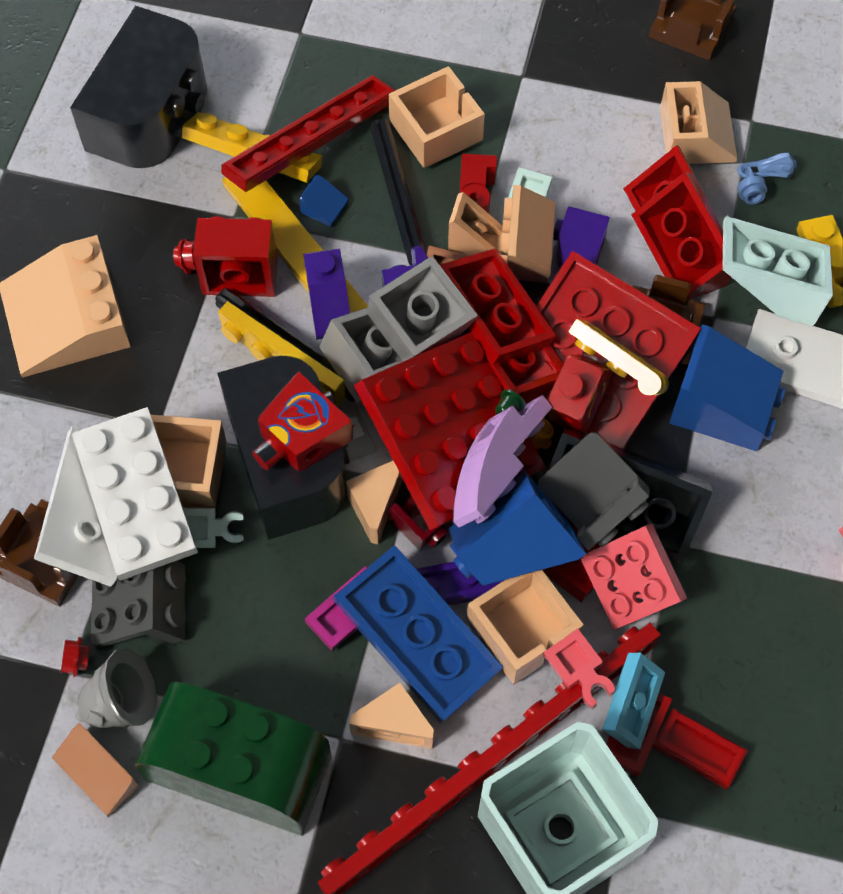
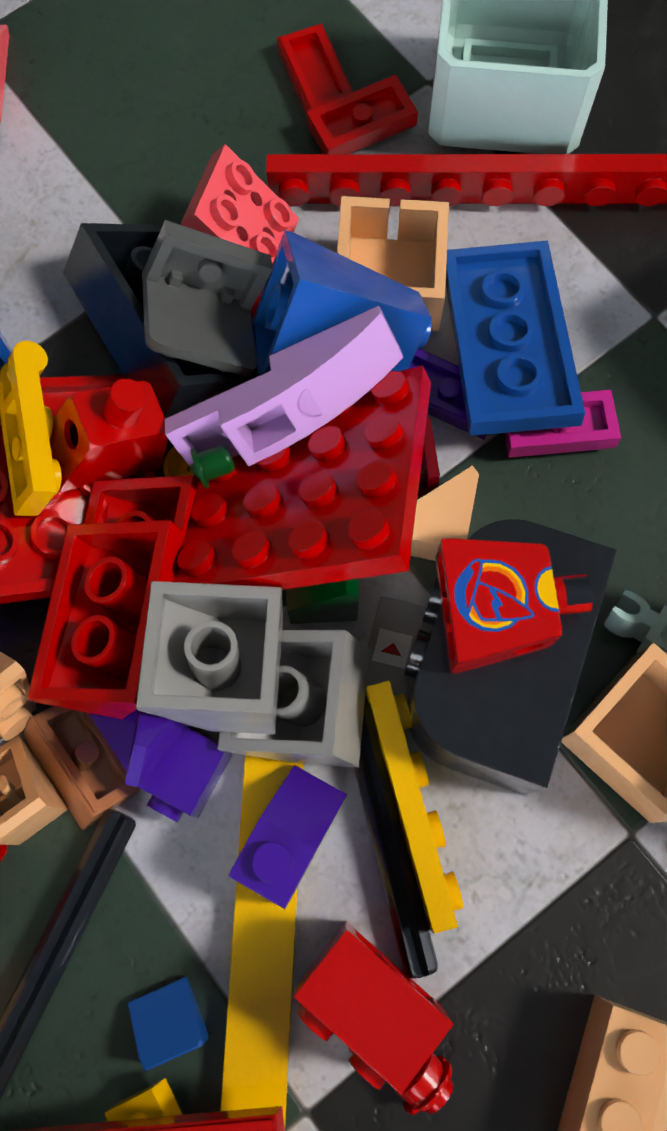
camera: 140 degrees left, 10 degrees up
(393, 719) = (599, 280): light nougat slope -> none
(576, 663) = (380, 166): coral plate -> none
(633, 700) = (369, 108): medium azure plate -> none

